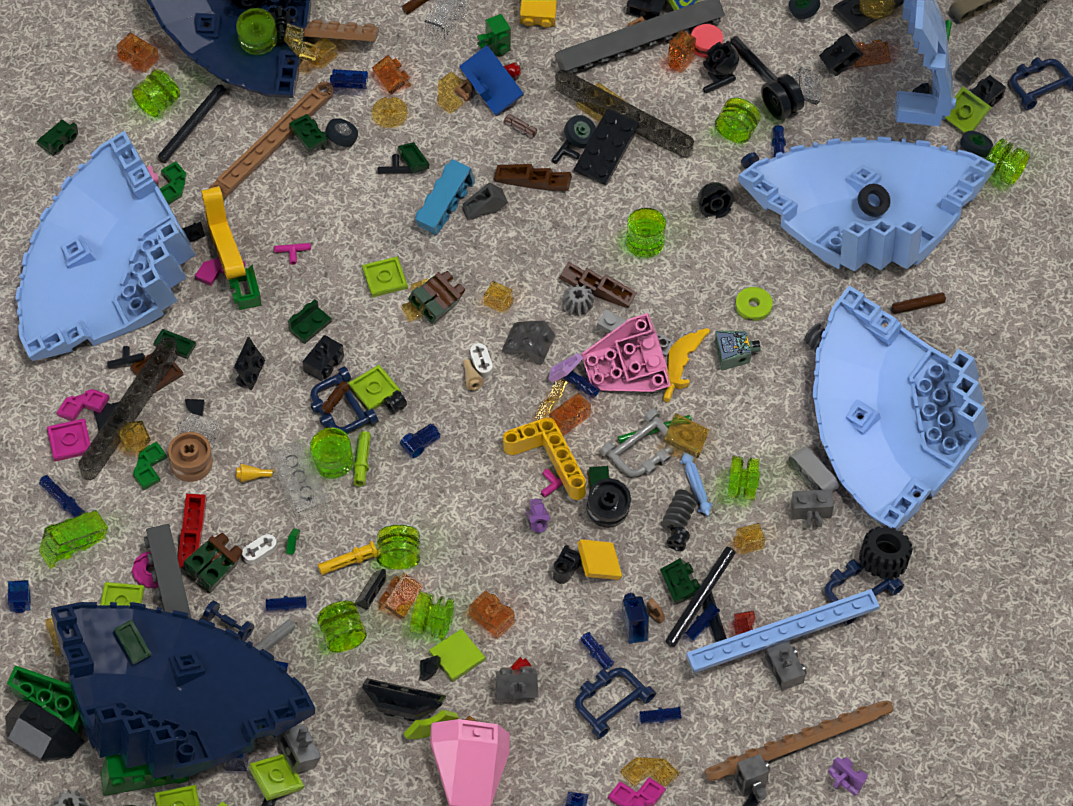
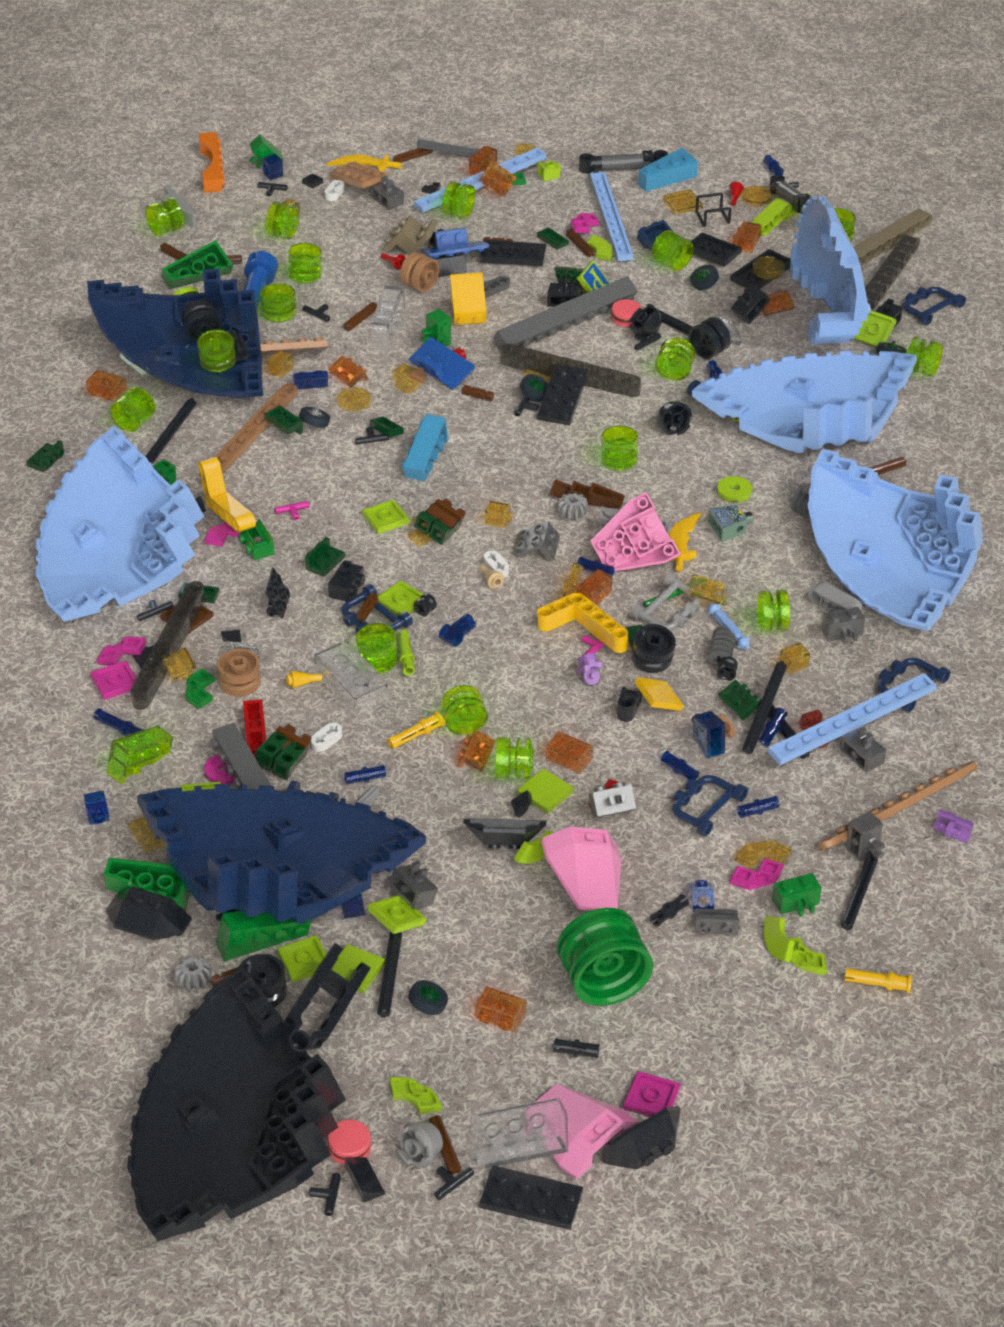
camera: 10 degrees left, 15 degrees down
(132, 642) = (224, 817): dark green tile -> none
(292, 537) = (358, 722): green tile -> none
(294, 39) = (254, 351): clear yellow tile -> none
(341, 626) = (427, 780): clear neon green wheel -> none
(371, 589) = (446, 751): black slope -> none
(486, 200) = (463, 447): dark grey arch -> none
(535, 178) = (496, 427): reddish brown slope -> none
(564, 368) = (577, 555): lavender tile -> none
(681, 51) = (608, 319): clear orange brick -> none
(881, 193) = (816, 390): black tyre -> none
(885, 552) = (925, 646): black tyre -> none

